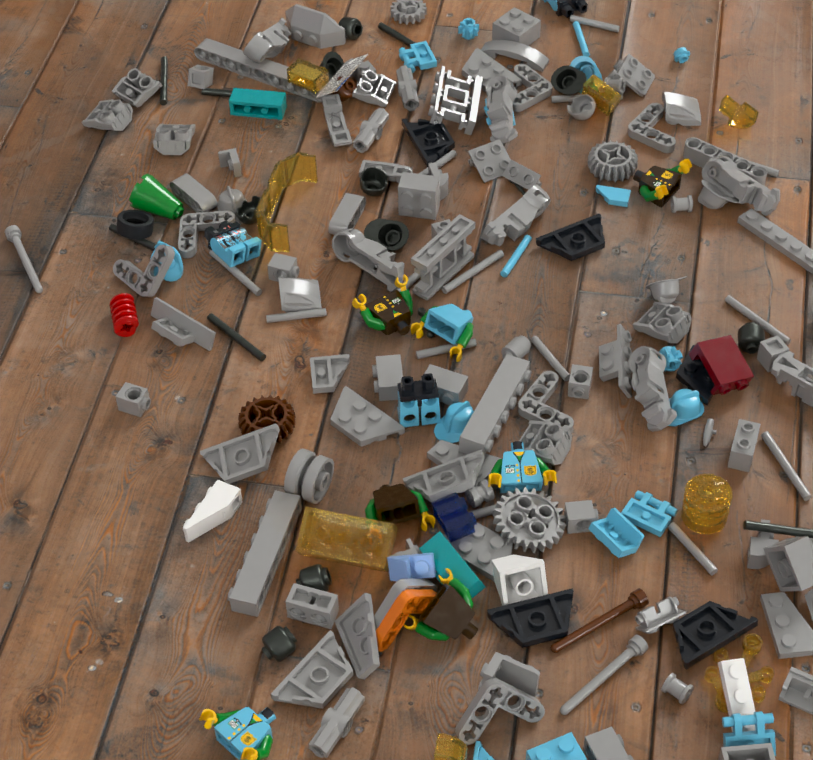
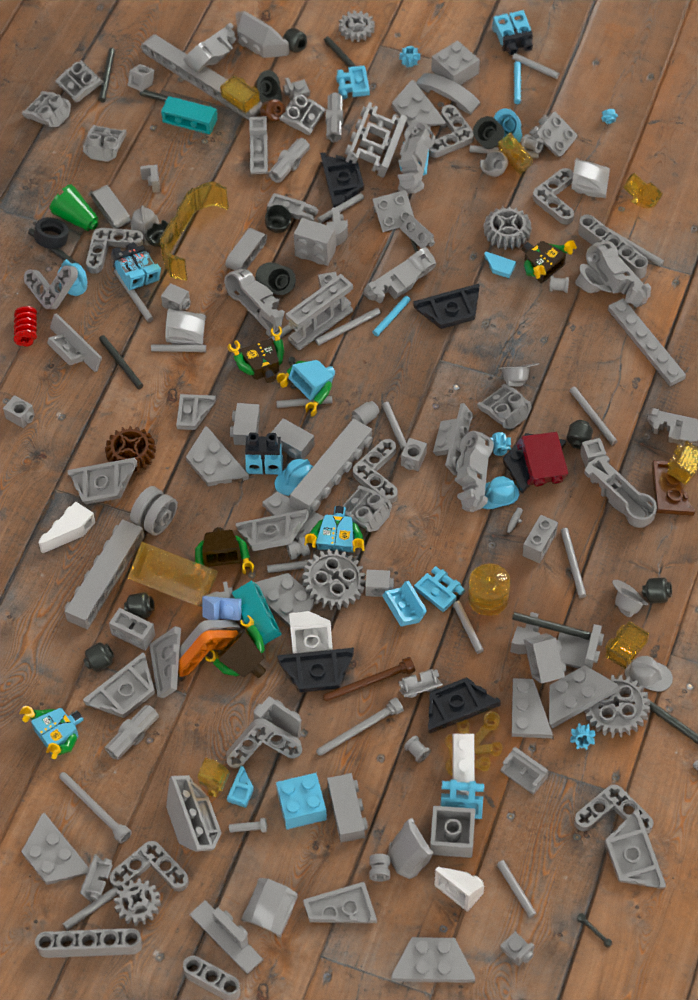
camera: 10 degrees right, 10 degrees up
(345, 71) = (275, 95): sticker -> none
(453, 517) = (268, 567): clear blue brick -> none

